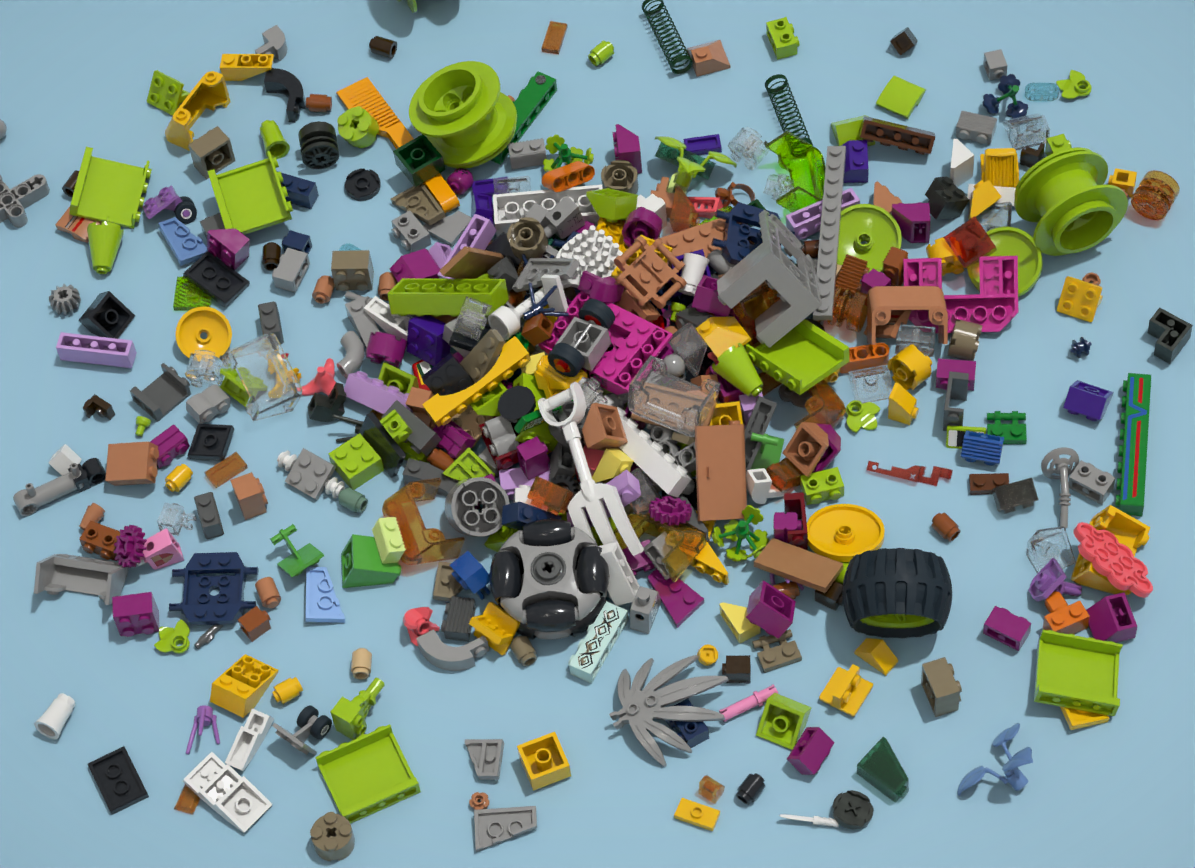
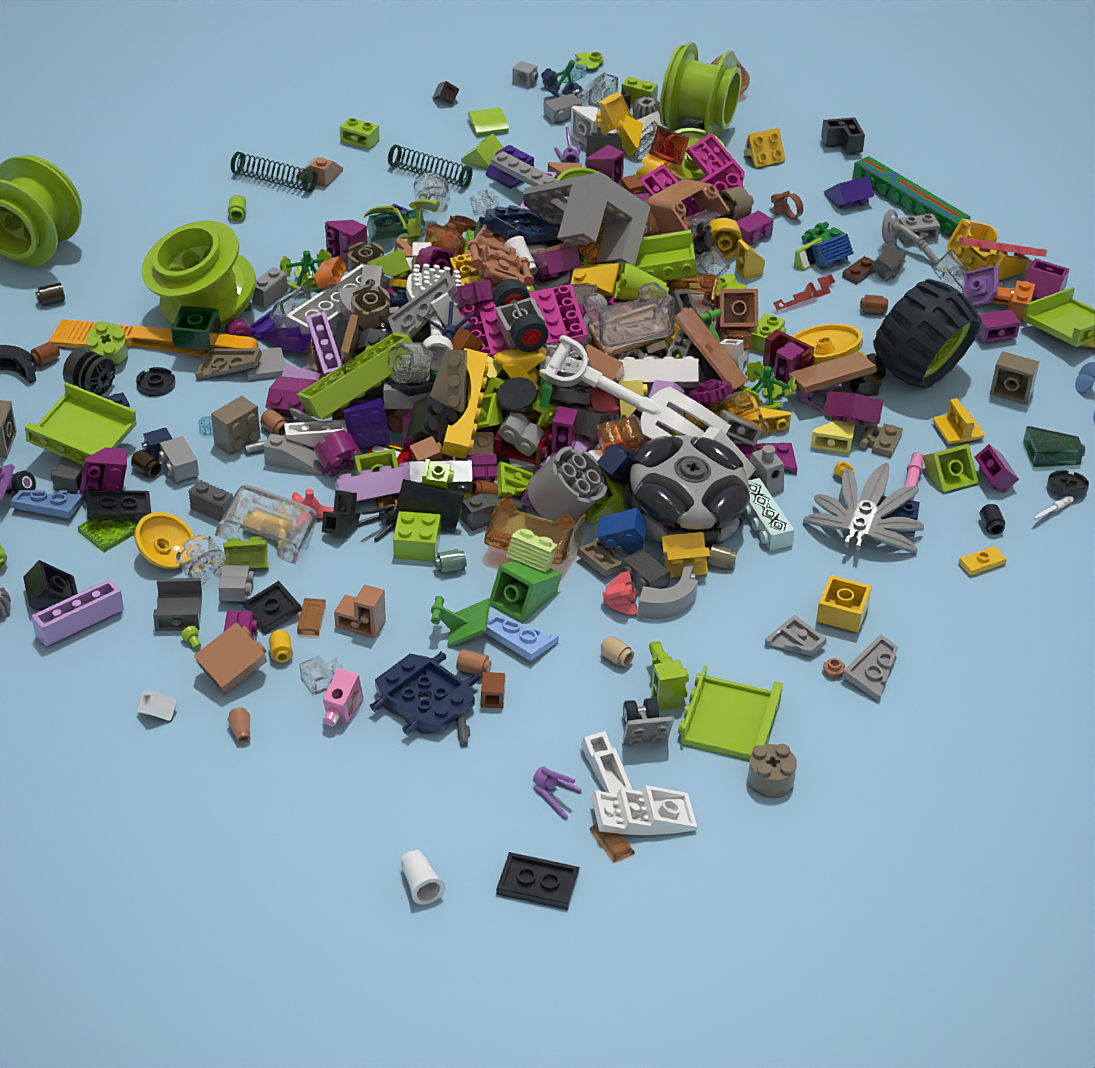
camera: 55 degrees left, 15 degrees down
(78, 479) = (187, 711): light grey piece -> none
(80, 575) = (304, 763): light grey windscreen -> none
(99, 406) = (136, 648): dark brown bracket -> none
(99, 540) = (282, 731): dark orange brick -> none
(130, 546) = (322, 696): magenta gear -> none
(135, 614) = (389, 751): magenta brick -> none
(172, 637) = (438, 751): lime plate -> none
(208, 515) = (348, 649): dark grey brick -> none
(242, 685) = (546, 736): yellow slope -> none
(273, 139) = (36, 394): lime plant -> none
(287, 690) = (586, 710): yellow brick -> none
(310, 474) = (391, 567): light grey plate -> none
(323, 289) = (223, 456): nougat brick -> none
(354, 354) = (310, 476): light grey cylinder -> none
(410, 232) = (244, 381): light grey brick -> none
(554, 37) = (181, 217): clear orange tile -> none
(710, 789) = (969, 538): clear orange brick -> none
(737, 669) = (875, 458): dark brown brick -> none
(805, 169) = (470, 181): clear neon green windscreen -> none
(877, 655) = (940, 394): yellow slope -> none
(881, 359) = (703, 240): none -> black plate
(896, 134) = (523, 132): reddish brown brick -> none
(916, 183) = (569, 155): none -> medium lavender plant
(957, 390) = (778, 239): dark grey panel -> none
(1014, 367) = (781, 205): none -> dark orange piece
(1080, 347) = (802, 172): dark blue wheel -> none

